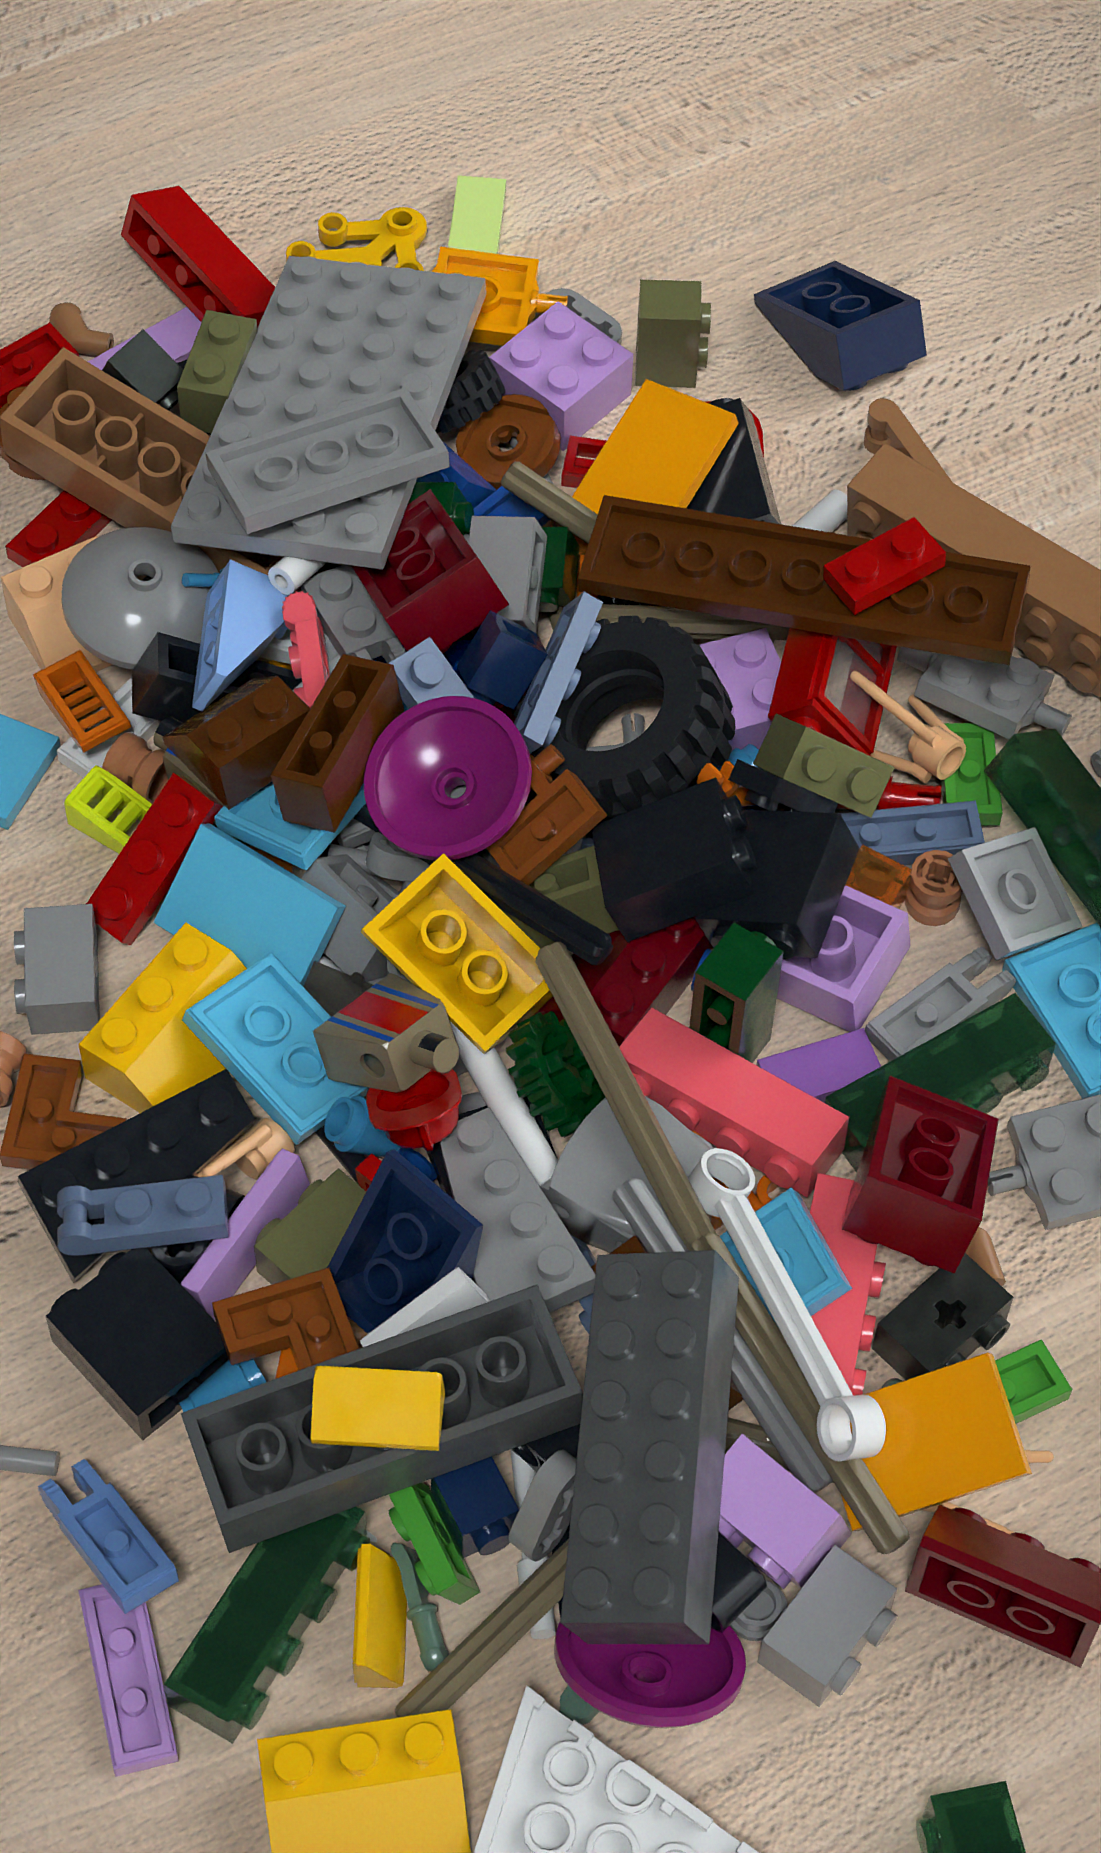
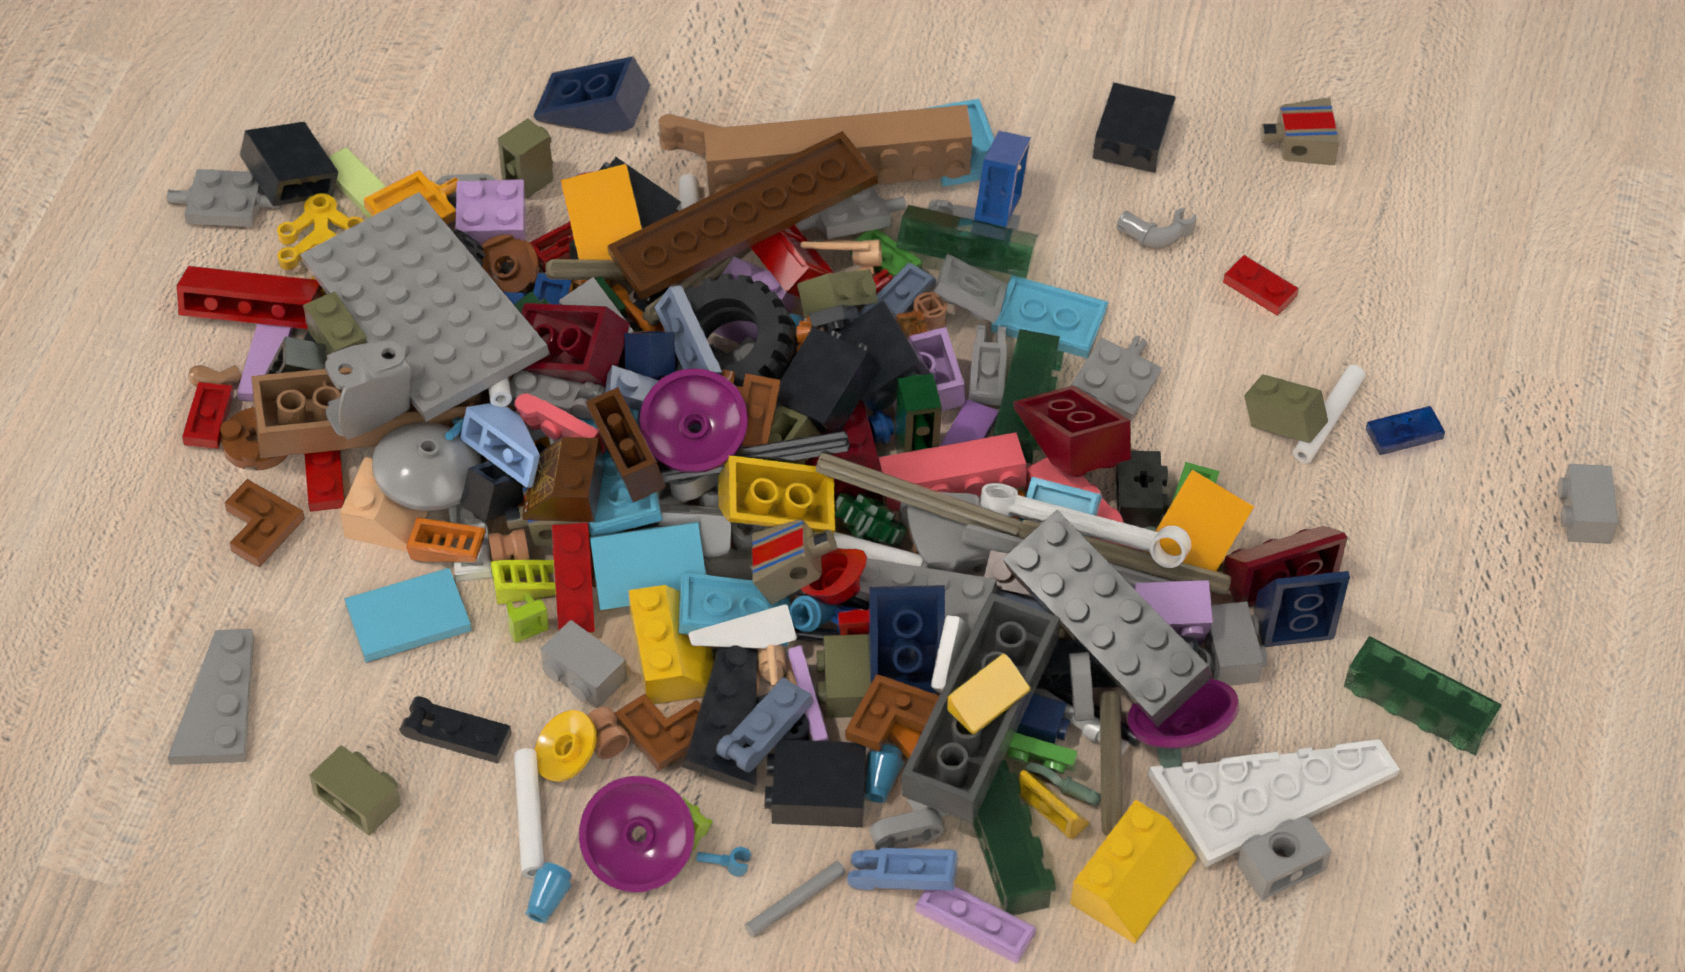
camera: 45 degrees left, 5 degrees down
(64, 865) = (527, 619): none -> lime tile
(139, 449) = (374, 389): none -> light grey piece
(167, 1489) = (907, 829): none -> light grey beam
(263, 1091) = (750, 631): none -> white sticker
(318, 144) = (221, 198): none -> light grey plate
(327, 460) = (471, 321): light grey plate -> none
(415, 150) = (288, 163): none -> black brick
(884, 565) = (779, 178): red plate -> none
(953, 1660) = (1301, 608): none -> dark blue slope

